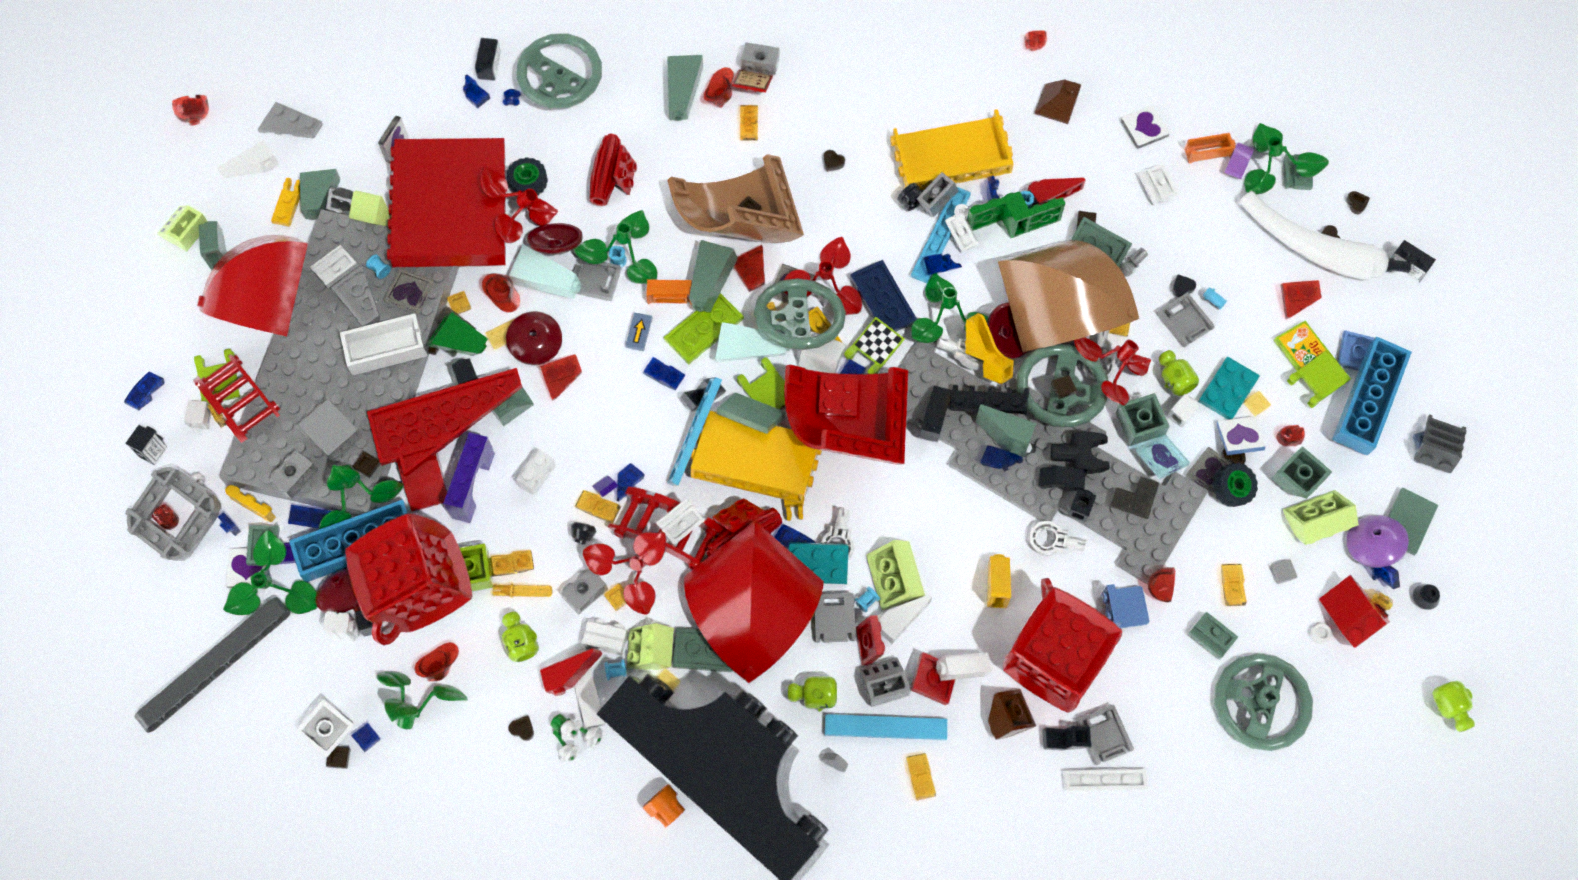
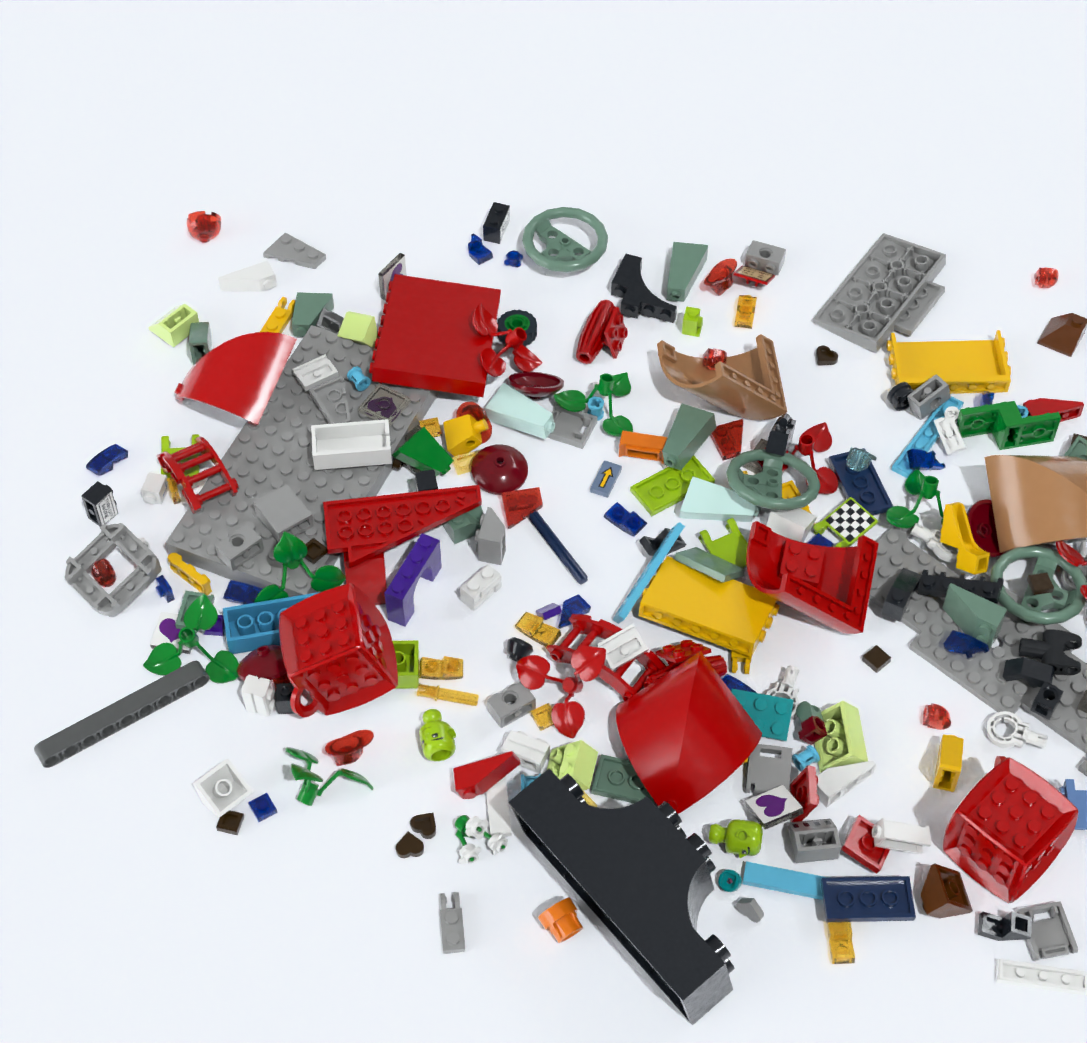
camera: 10 degrees right, 15 degrees down
(492, 308) = (463, 434): none -> yellow torso
(511, 752) = (409, 846): none -> dark brown tile
(537, 420) = (491, 538): none -> light grey slope
(564, 826) = (452, 926): none -> light grey hinge
(603, 414) = (558, 547): none -> dark blue axle
(640, 123) = (635, 294): none -> black arch
(698, 144) = (692, 322): none -> lime brick
(726, 183) = (713, 356): none -> clear red piece
(801, 262) = (781, 435): none -> black piece
(813, 736) = (729, 880): none -> teal tile
(844, 658) = (774, 807): none -> tile
(867, 562) = (812, 723): none -> dark red leg
(878, 275) = (859, 459): none -> clear light blue piece
(881, 81) = (884, 293): none -> light grey slope
(920, 483) = (876, 658): none -> dark brown tile
(940, 735) = (868, 899): none -> dark blue plate
(982, 535) = (936, 717): none -> clear red piece

